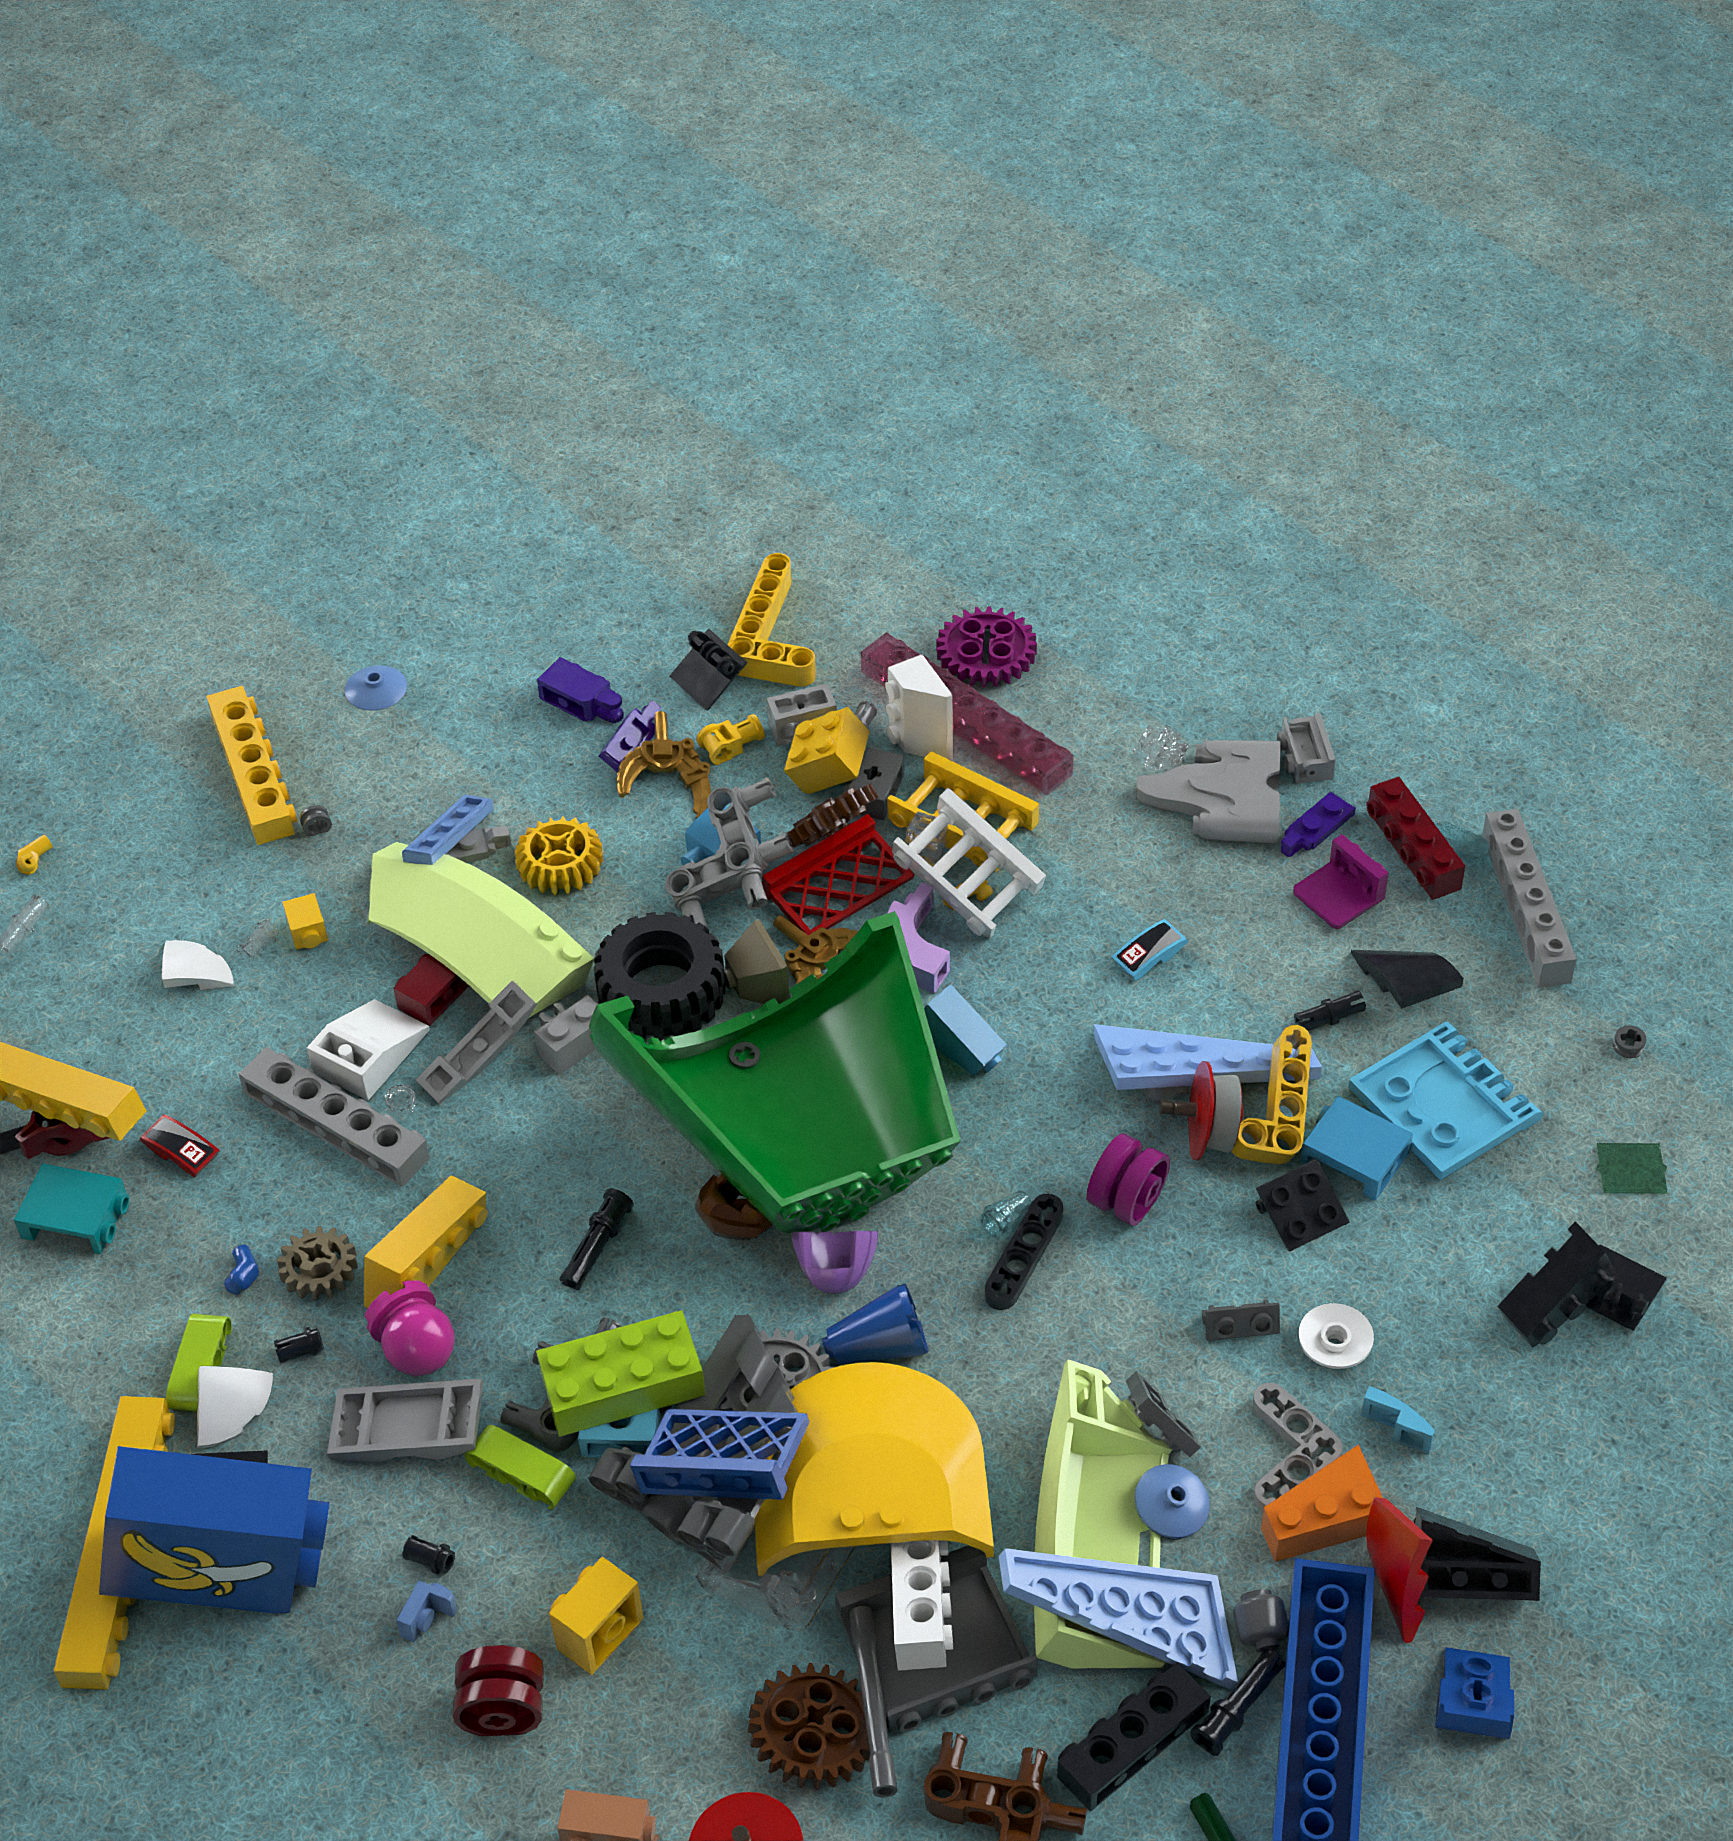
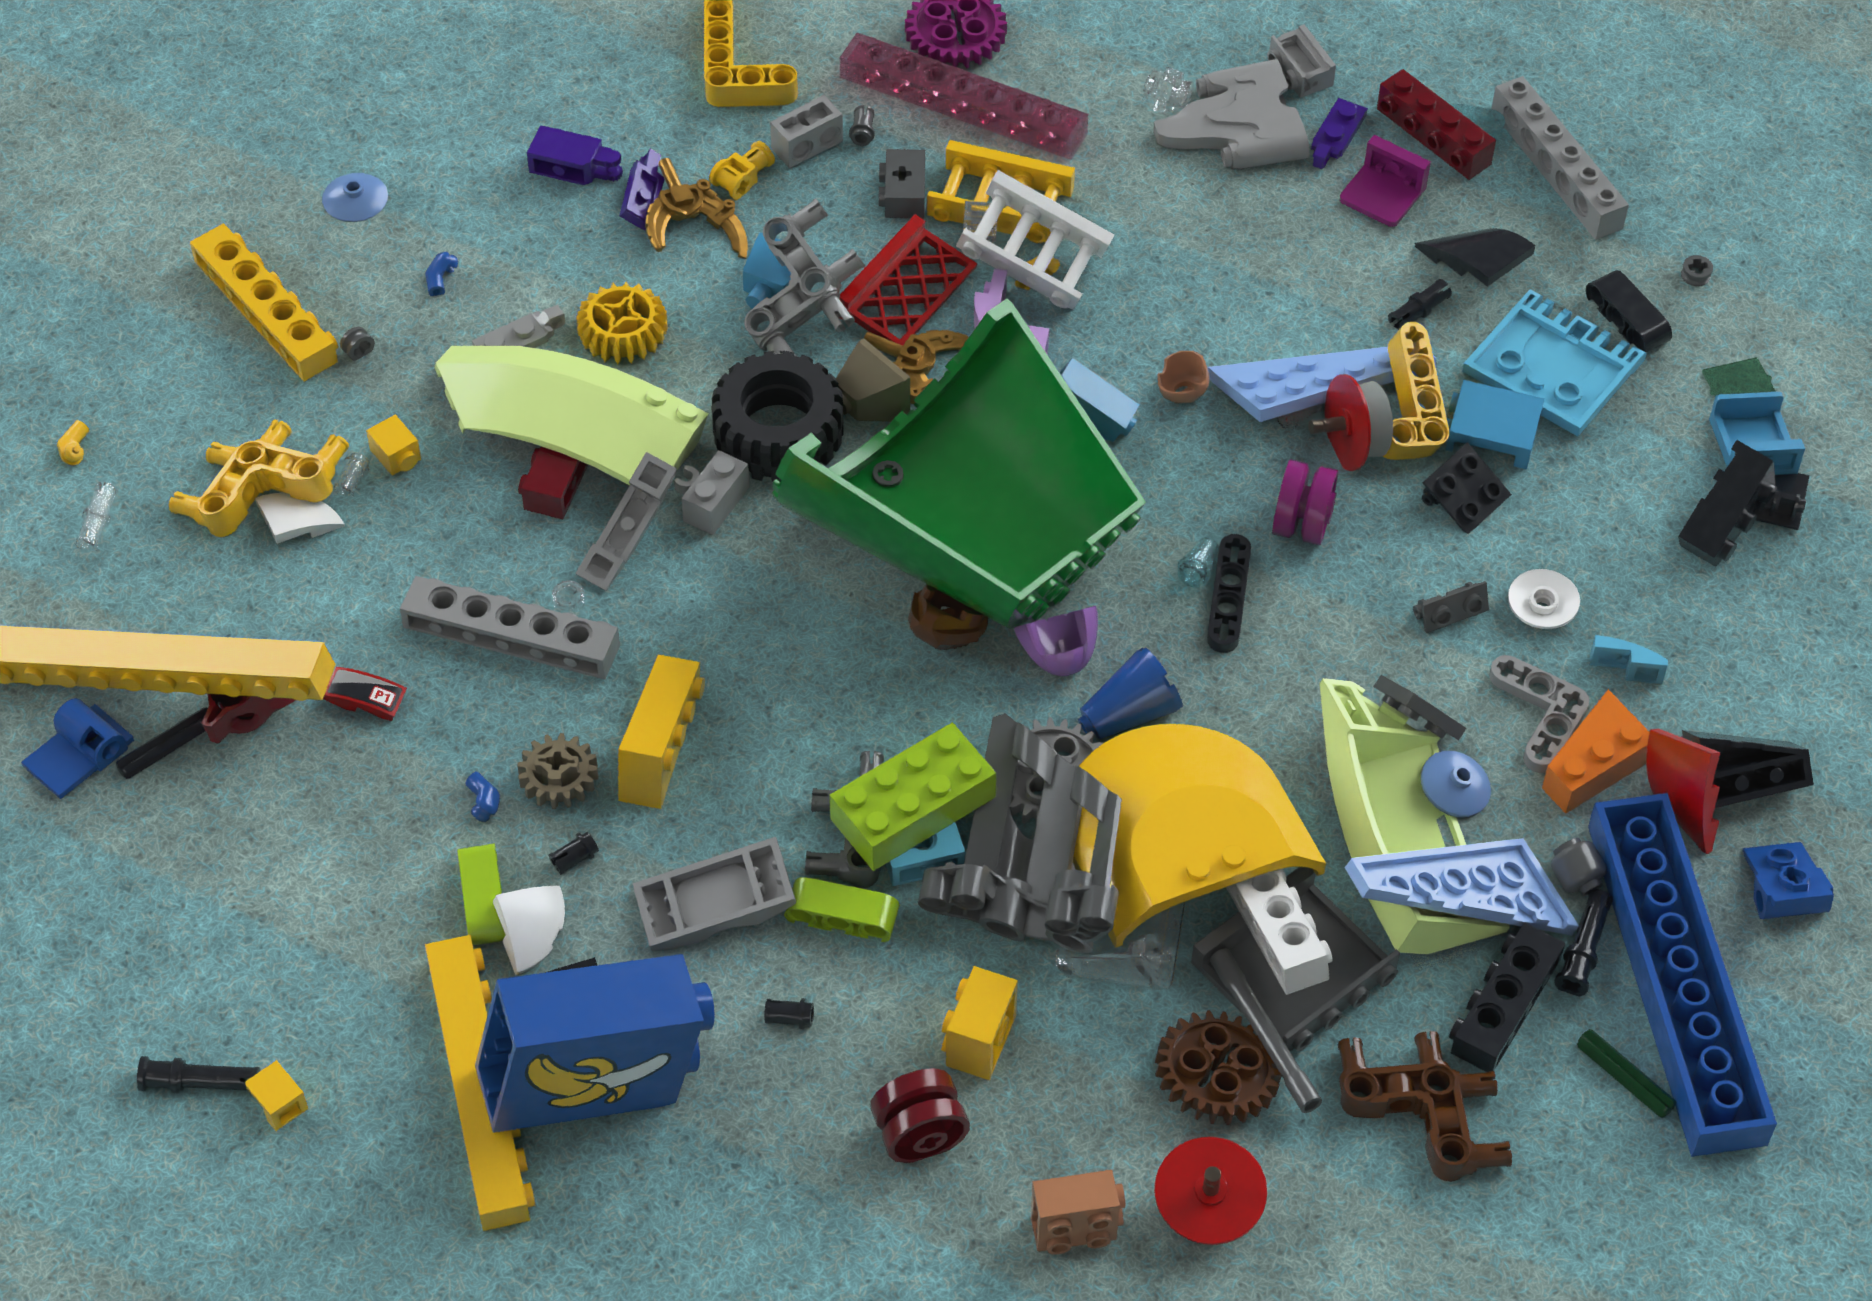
camera: 20 degrees left, 5 degrees up
(73, 1205) = (285, 776): teal panel -> none
(174, 915) = (255, 469): none -> yellow pin
(365, 1047) = (512, 553): white slope -> none
(411, 1329) = (687, 810): dark pink tile -> none
(413, 772) = (435, 271): none -> blue arm
(420, 1607) = (808, 1055): medium blue bracket -> none
(447, 830) = (502, 322): medium blue tile -> none
(603, 1226) = (823, 667): black pin -> none
(707, 668) = (691, 105): black hinge -> none
(717, 1473) = (1053, 862): blue fence -> none
(827, 751) = (849, 161): yellow brick -> none
(831, 815) = (886, 222): reddish brown gear -> none
(919, 709) = (928, 101): white slope -> none
(1065, 1021) = (1180, 370): none -> nougat hair
(1149, 947) = (1229, 284): slope -> none
(1542, 1066) = (1629, 310): none -> black beam
(1625, 1219) = (1758, 424): none -> dark azure panel

